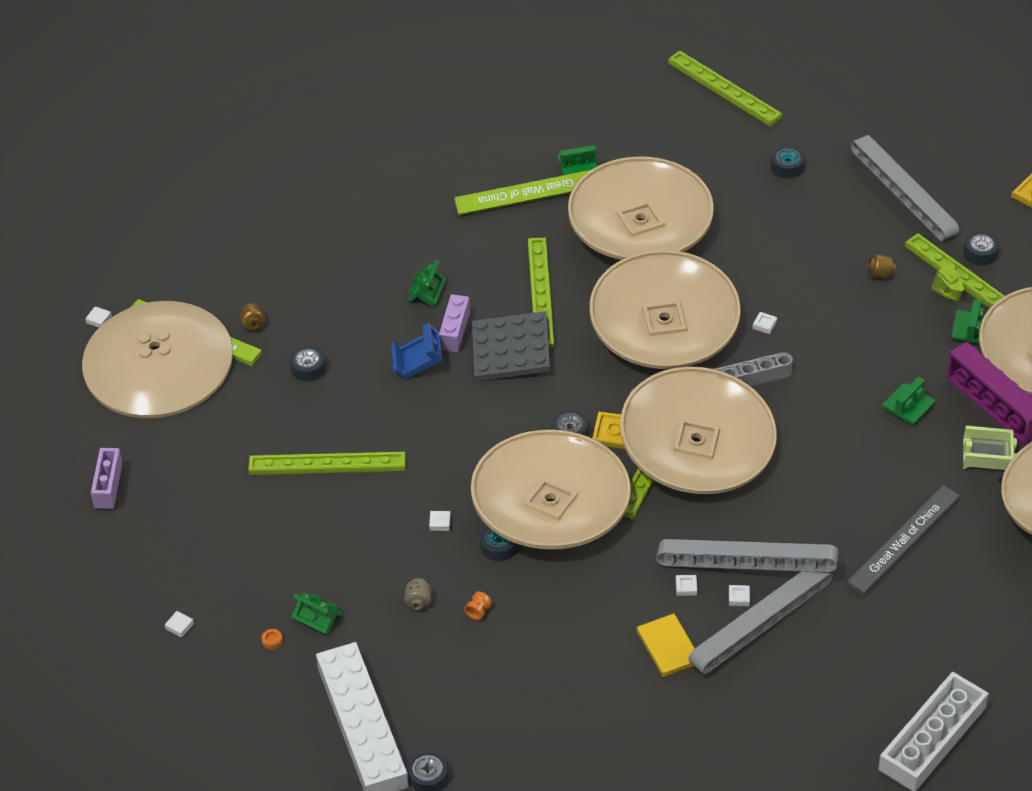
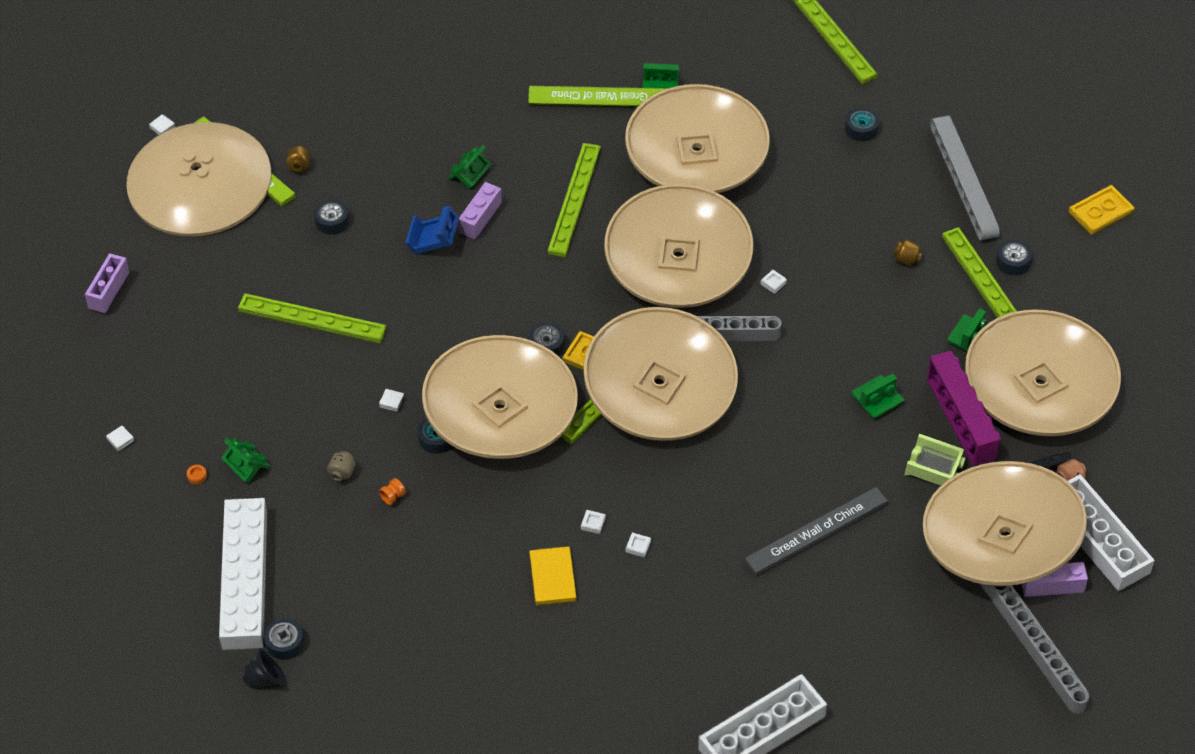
camera: 15 degrees right, 5 degrees up
(511, 346) = (524, 246): dark grey plate -> none
(747, 555) = (658, 508): light grey beam -> none
(758, 619) = (646, 572): light grey beam -> none
(948, 283) = (964, 285): lime piece -> none

